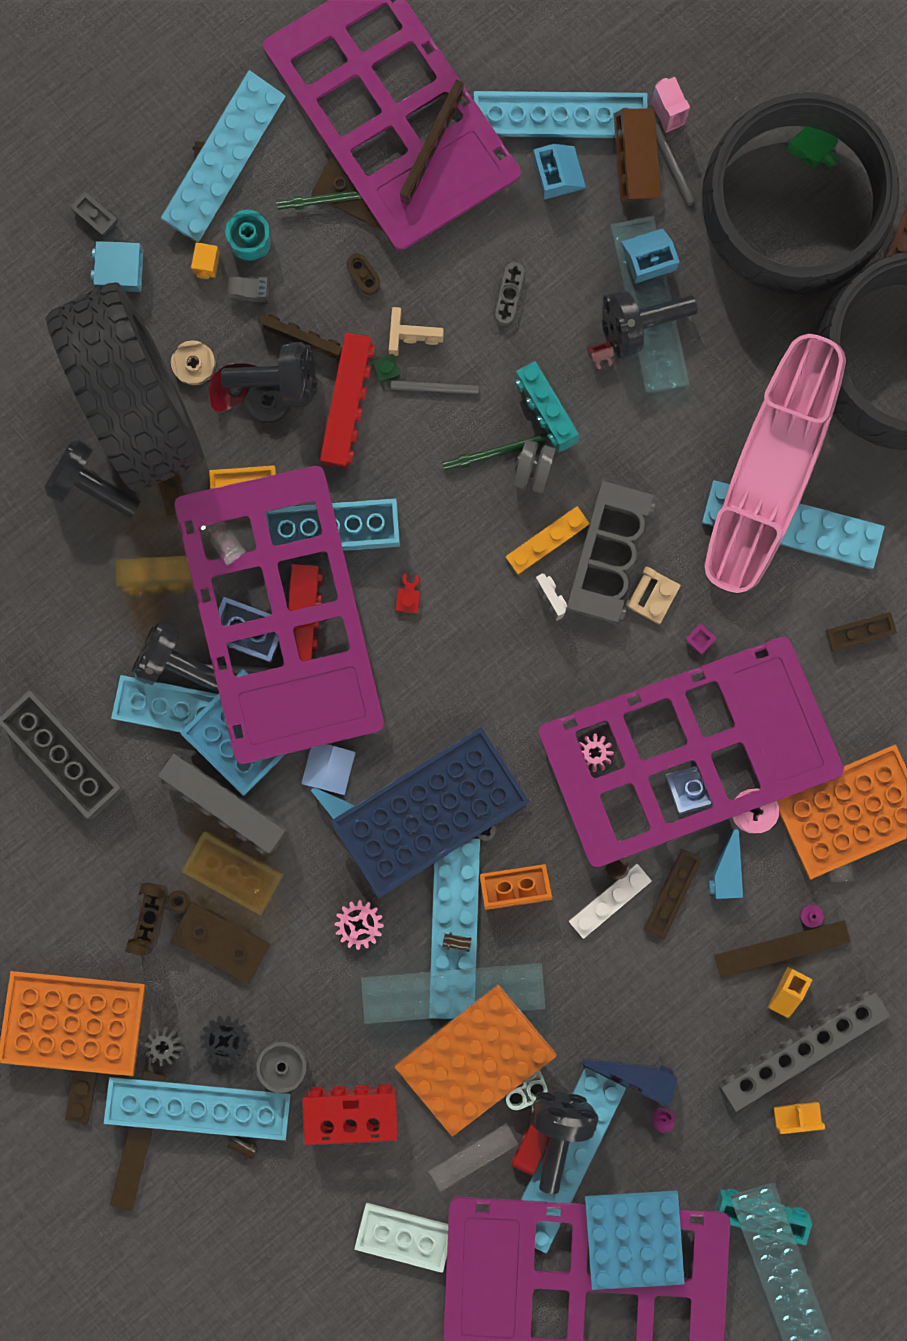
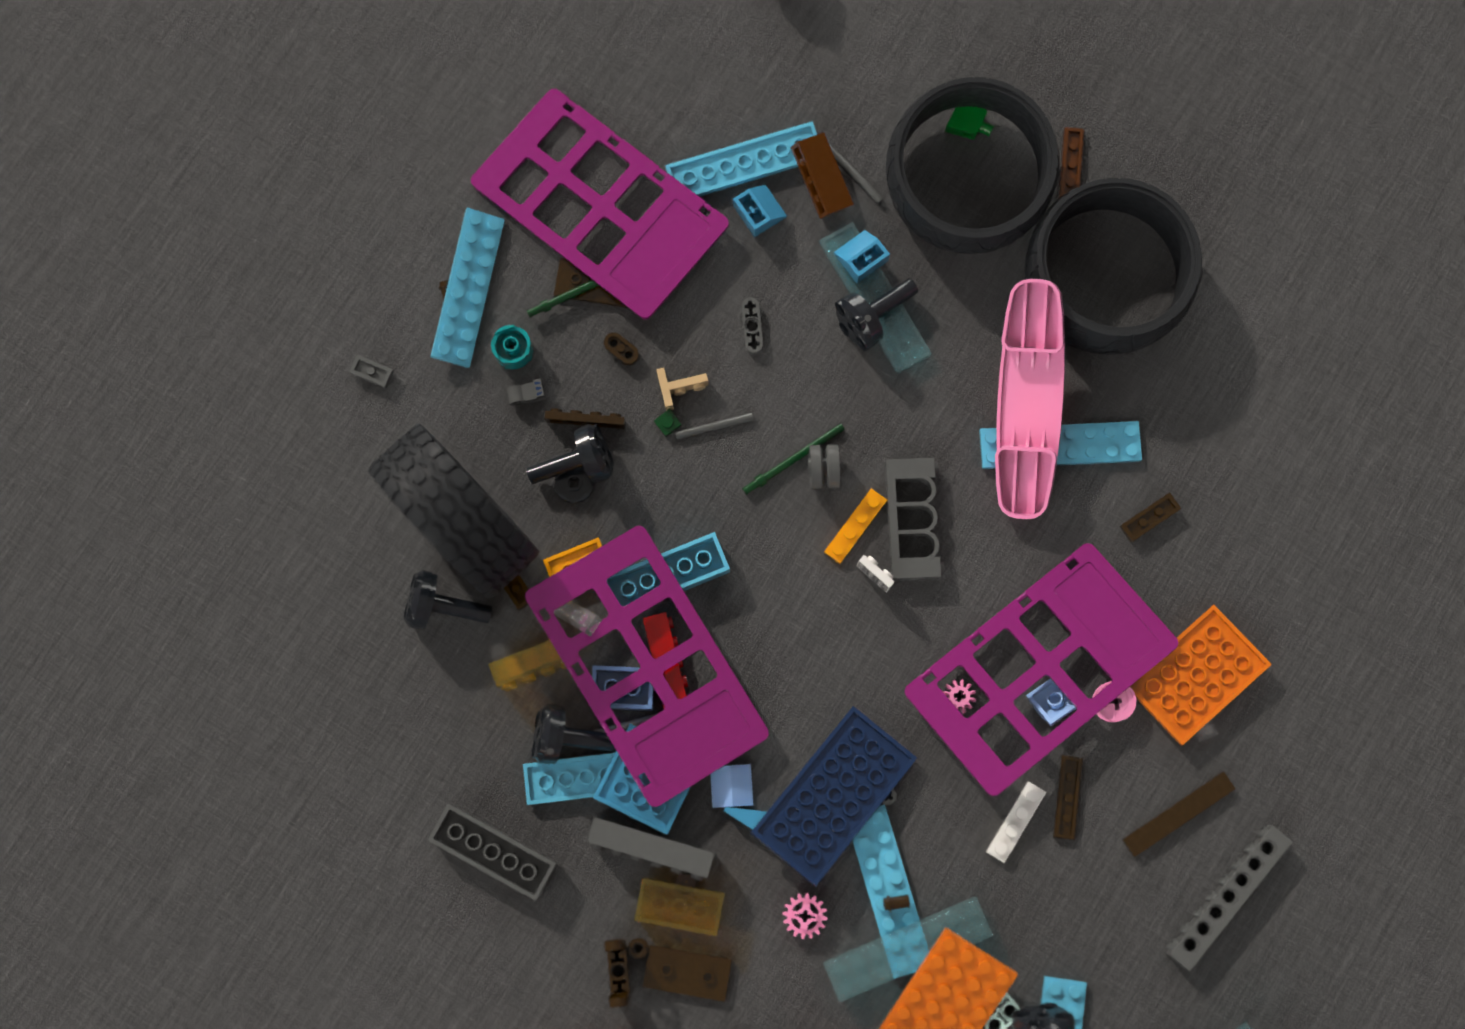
camera: 20 degrees left, 5 degrees down
(118, 263) = (406, 409): medium azure brick -> none
(182, 356) = (487, 470): tan plate -> none
(205, 260) = (481, 380): light orange brick -> none
(219, 396) = (530, 492): dark red piece -> none
(346, 401) = (642, 462): red brick -> none
(408, 598) = (752, 614): red plate -> none
(432, 142) = (645, 217): dark brown tile -> none
(515, 887) = (930, 837): orange slope -> none
(547, 407) = (817, 411): teal brick -> none
(600, 352) = (846, 351): dark red tile -> none
(618, 869) = (1013, 792): dark brown tile -> none
(650, 1080) = (1103, 968): dark blue wedge -> none
(659, 599) = (968, 546): tan plate -> none
(663, 1120) = (1129, 1000): magenta tile -> none
(670, 104) = (835, 124): bright pink hips -> none
(700, 639) = (1016, 568): magenta plate -> none
(727, 873) = (1109, 764): dark azure slope -> none
(789, 992) = (1199, 850): light orange slope -> none
(798, 1118) = (1244, 959): light orange panel -> none
(806, 915) = (1189, 777): magenta tile -> none

